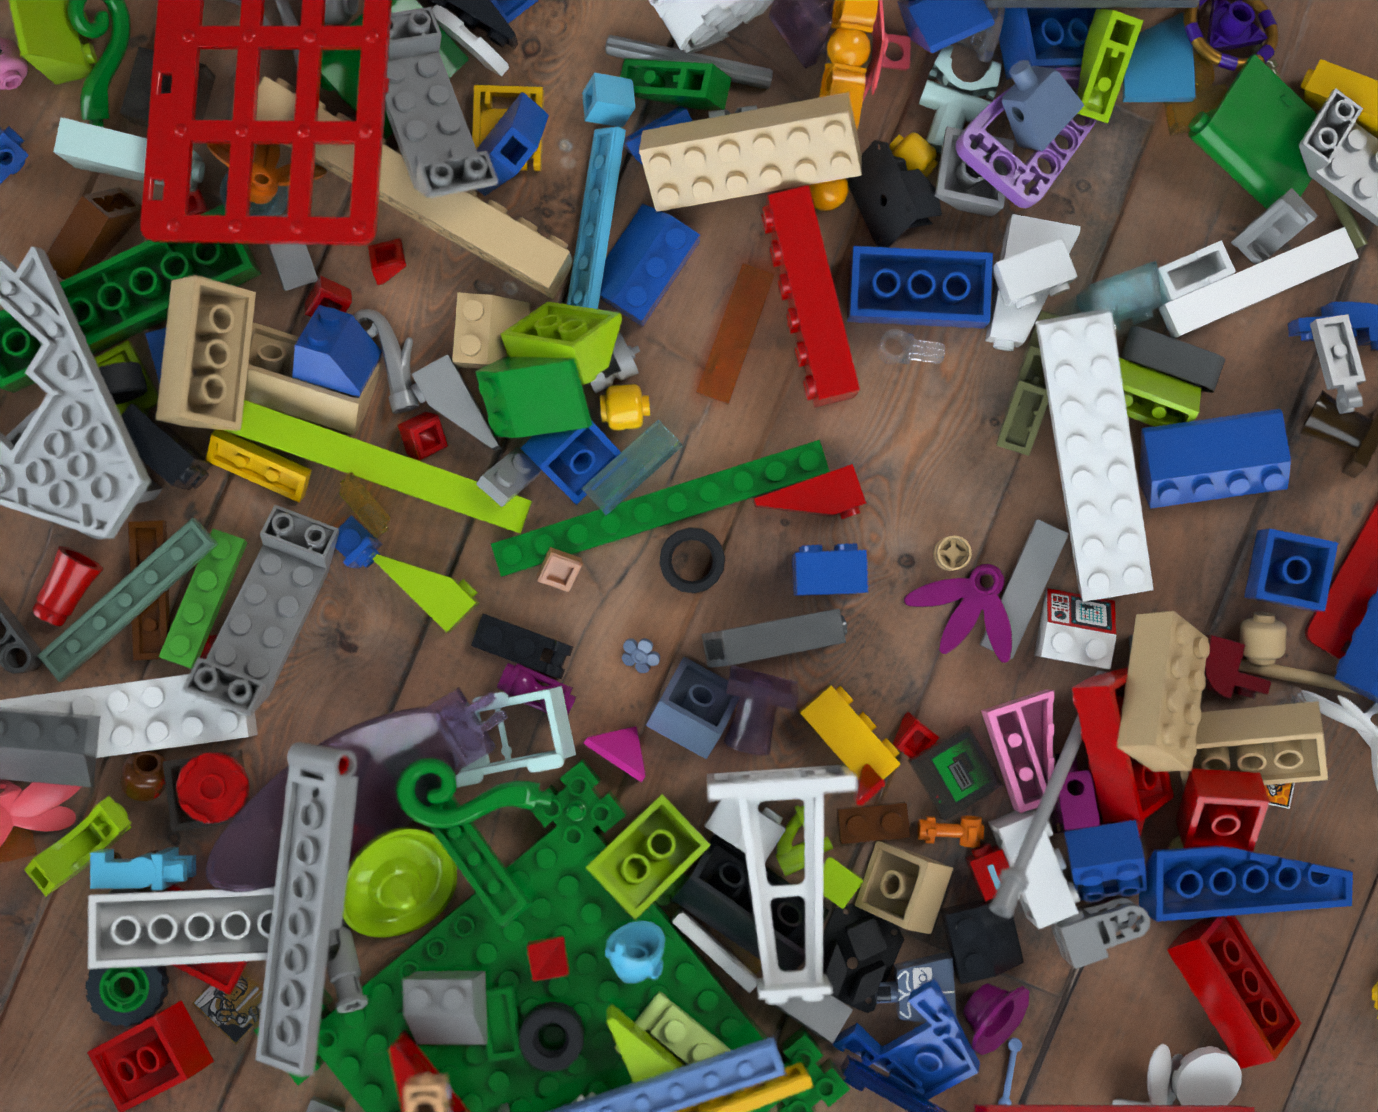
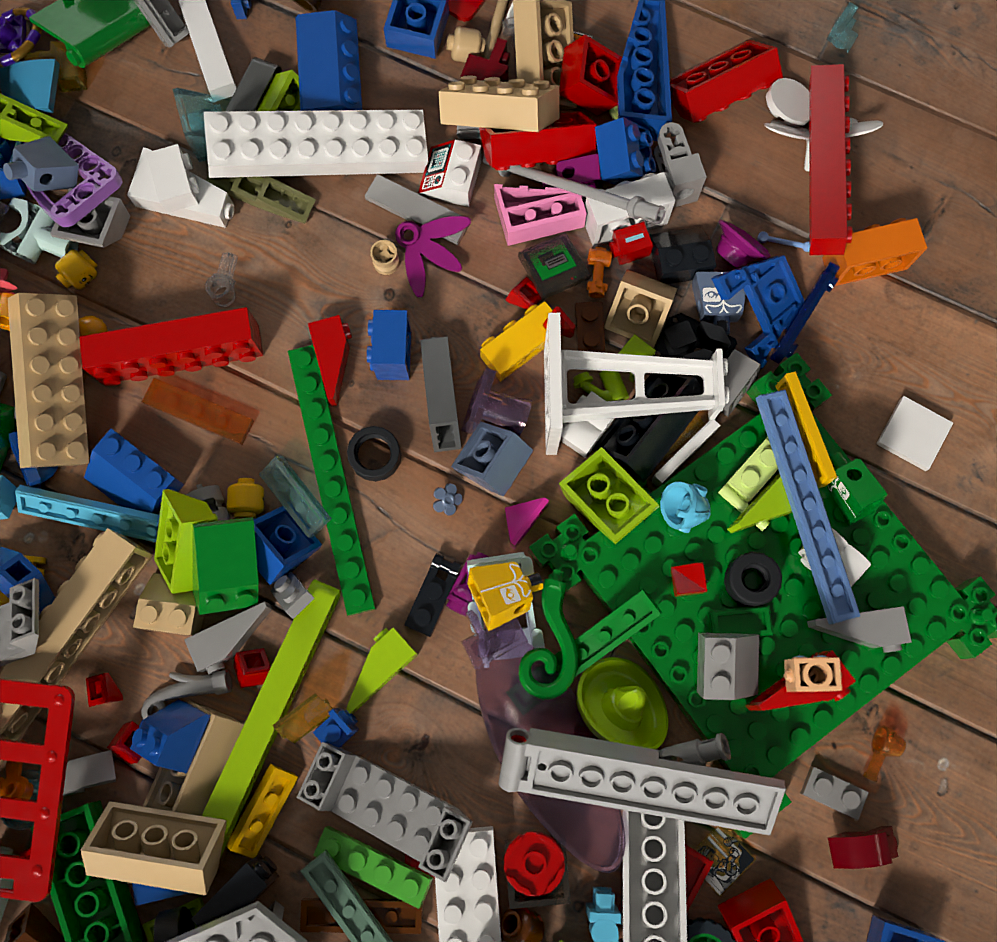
camera: 85 degrees left, 10 degrees down
(516, 735) = (502, 592): none -> yellow torso
(559, 569) = (372, 559): nougat tile -> none
(907, 194) = (98, 267): black piece -> none
(919, 287) = (175, 265): blue brick -> none
(1194, 272) = (187, 67): white brick -> none

